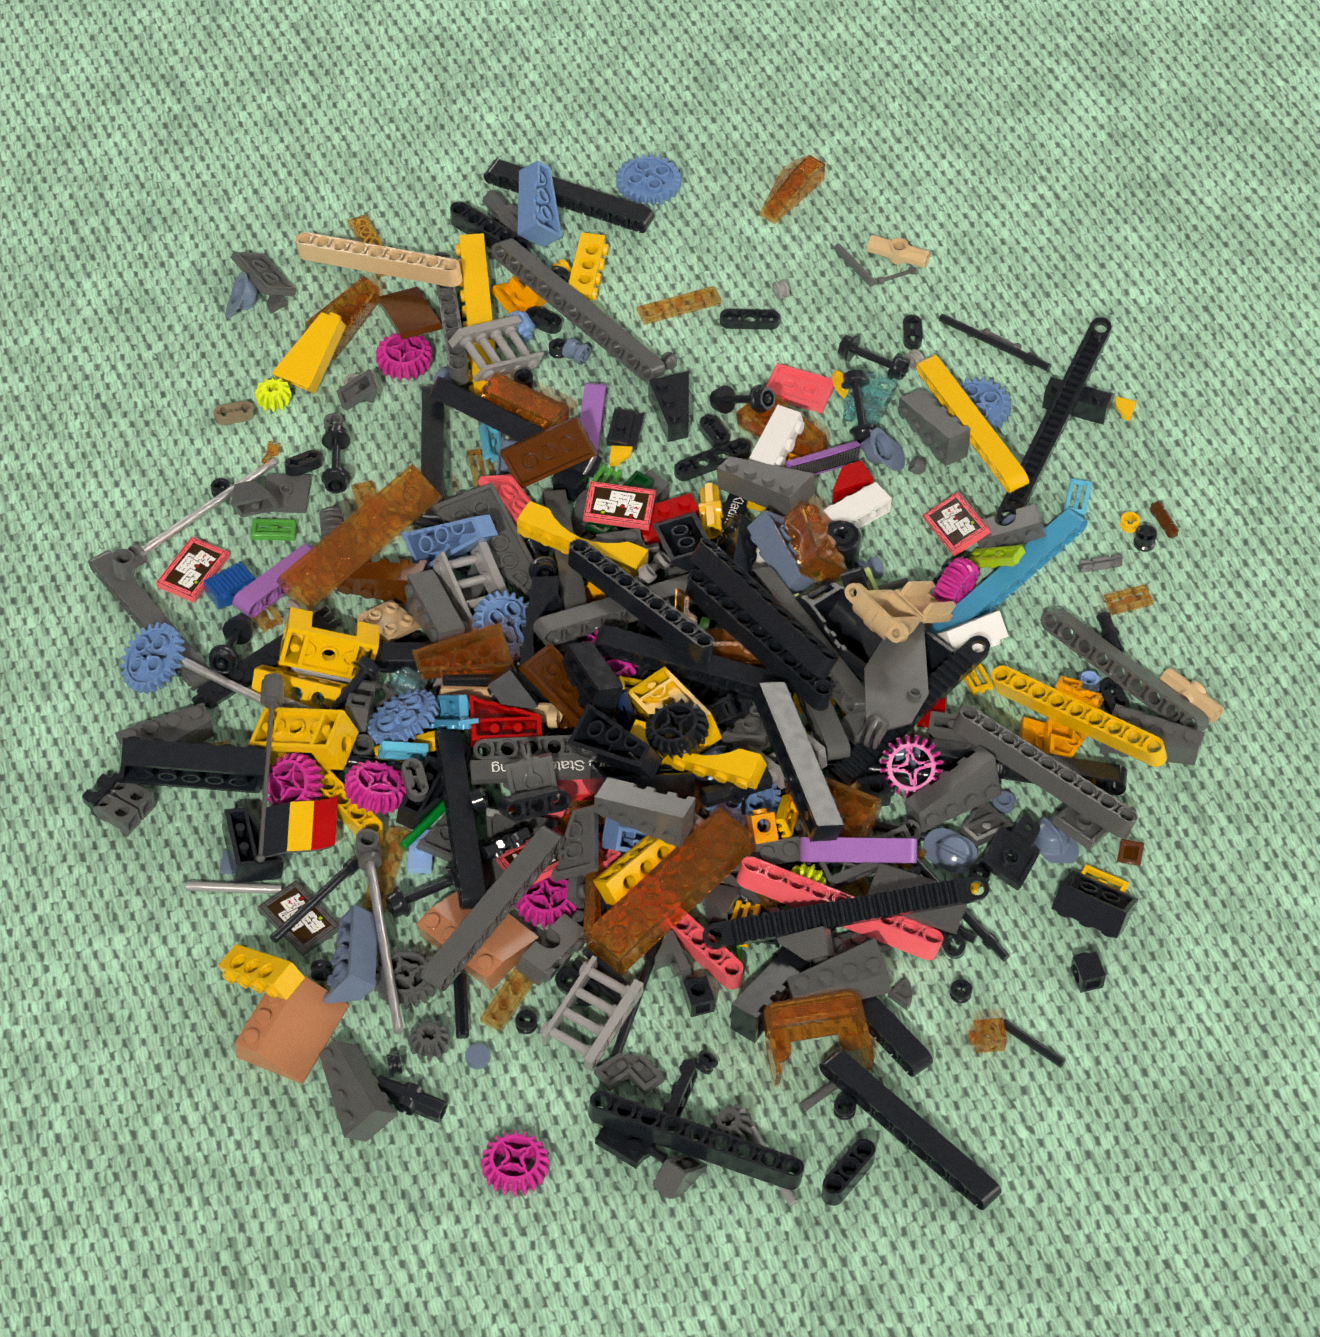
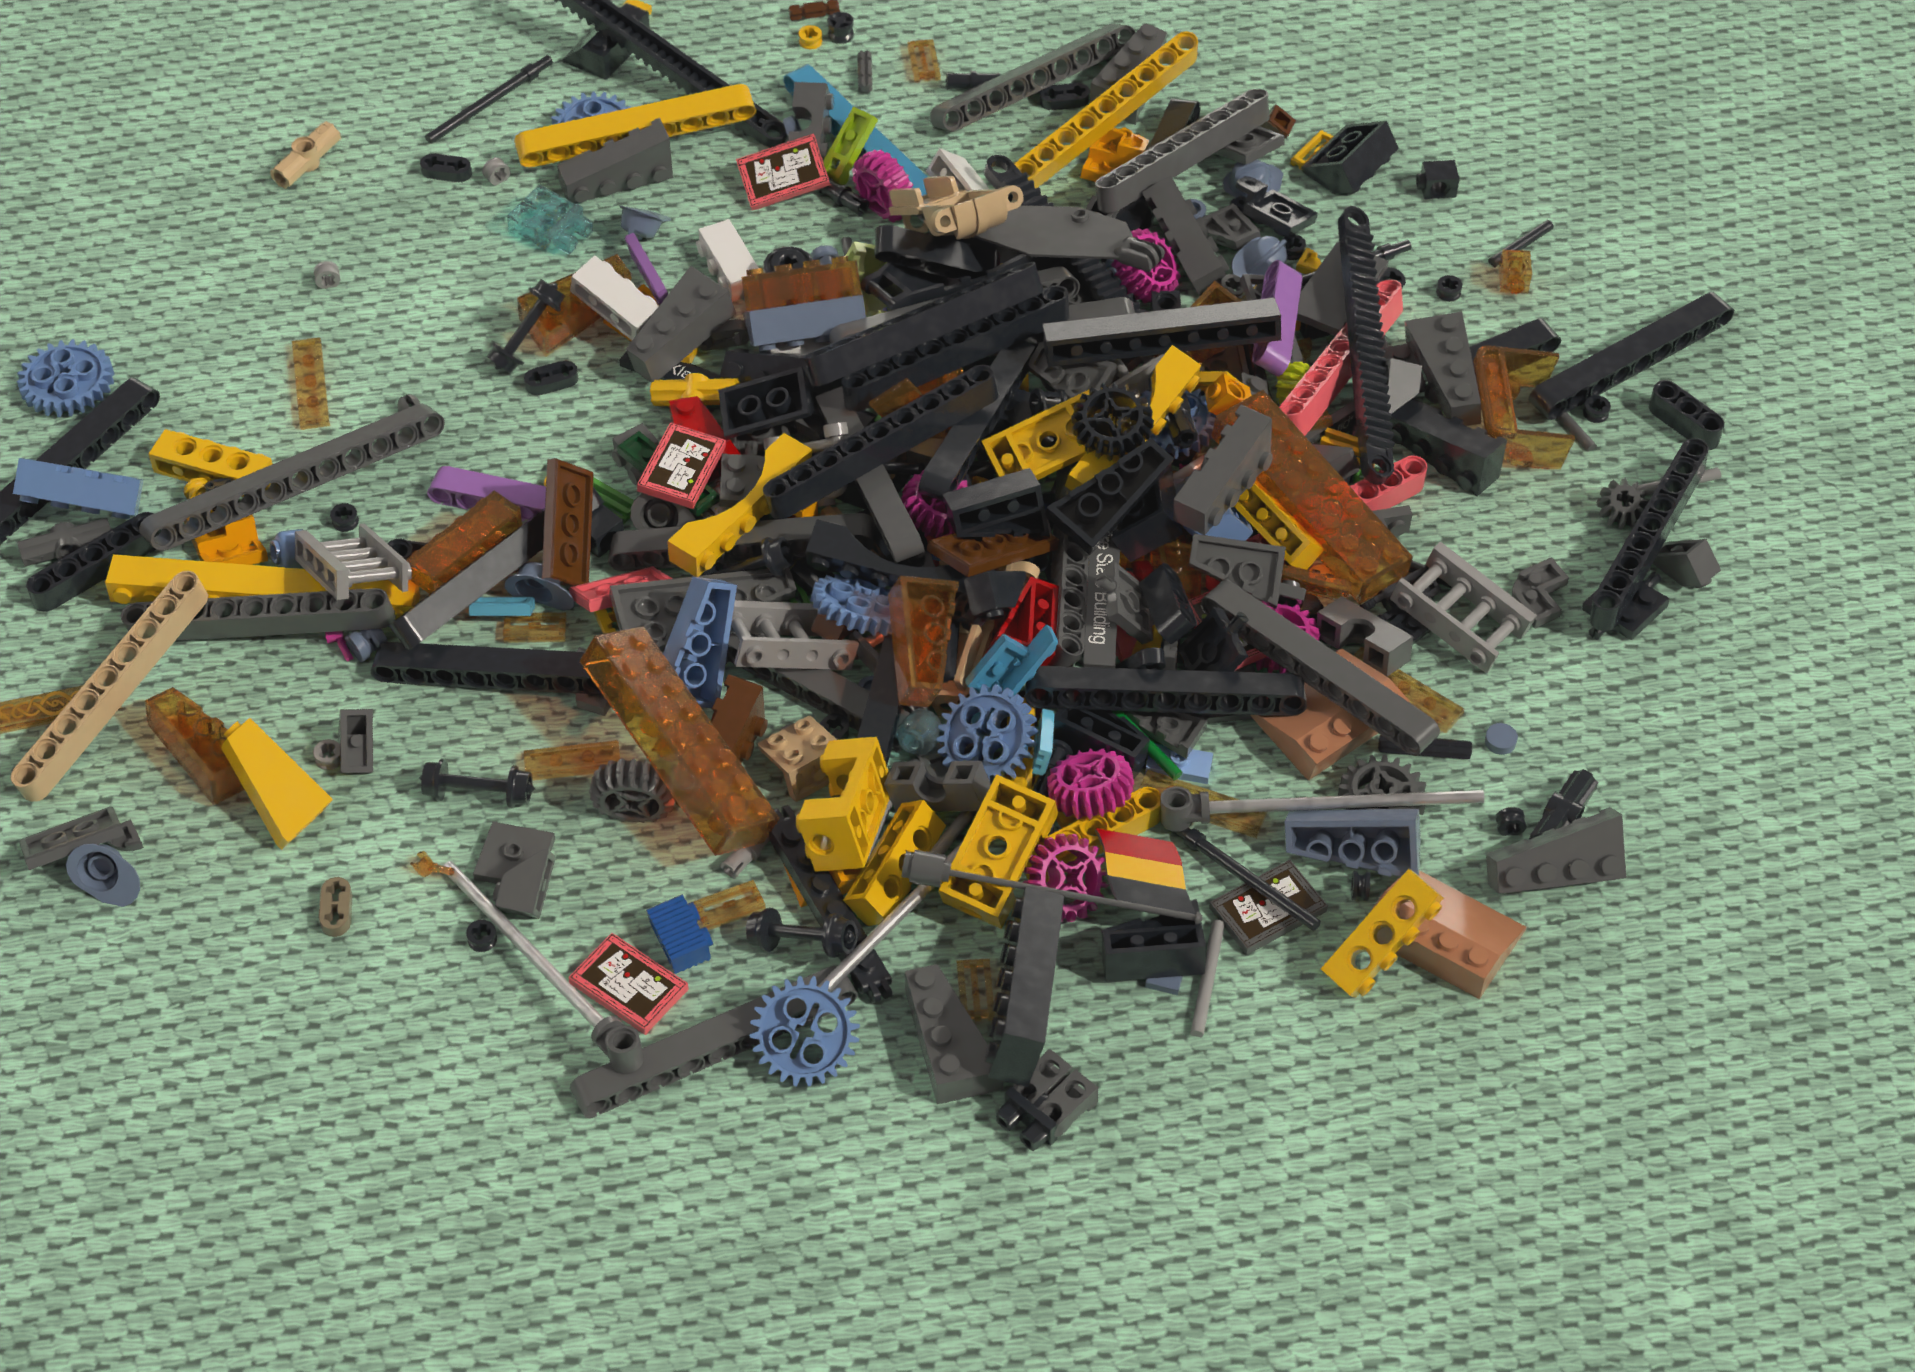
camera: 80 degrees left, 0 degrees up
(265, 589) = (688, 871): medium lavender beam -> none
(273, 394) = (320, 850): neon yellow gear -> none
(273, 531) = (573, 899): bright green tile -> none
(303, 463) = (471, 824): black beam -> none
(332, 417) = (401, 794): dark grey bush -> none
(366, 668) = (907, 758): black piece -> none
(398, 903) = (1266, 783): black piece -> none
(404, 357) = (303, 692): dark pink gear -> none
(409, 313) = (228, 663): reddish brown tile -> none
(410, 780) = (1098, 731): dark grey beam -> none
(429, 1040) = (1481, 775): dark grey gear -> none
(432, 607) = (821, 675): dark grey wedge -> none
(510, 1175) = (1661, 721): dark pink gear -> none
(521, 1017) = (1455, 675): black bush -> none
(543, 320) = (283, 522): black beam -> none
(576, 351) = (363, 494): sand blue wheel -> none
(625, 428) = (518, 462): black plate -> none
(671, 404) = (499, 406): black wedge -> none
(682, 1089) = (1573, 545): black hinge -> none
(698, 1004) = (1438, 511): black brick -> none
(705, 1062) = (1531, 518): black bush -> none
(710, 457) = (600, 386): black beam -> none
(765, 324) = (361, 306): black beam -> none
(792, 186) = (137, 233): clear orange wedge -> none
(801, 387) = (498, 286): coral tile -> none
(837, 379) = (513, 243): yellow tile -> none
(850, 346) = (459, 222): black piece -> none
(851, 480) = (678, 253): red slope -> none
(854, 265) = (306, 203): dark grey bar -> none
(855, 380) = (606, 233): black piece -> none
(911, 270) = (337, 153): dark grey hinge -> none
(917, 465) = (665, 196): dark grey hinge -> none
(987, 331) = (467, 103): dark grey hinge -> none
(1074, 689) = (1071, 105): light orange slope -> none
(1080, 483) = (758, 76): medium azure tile -> none
(1090, 676) = (1037, 111): light blue plate -> none
(1194, 693) = (1073, 29): tan piece -> none

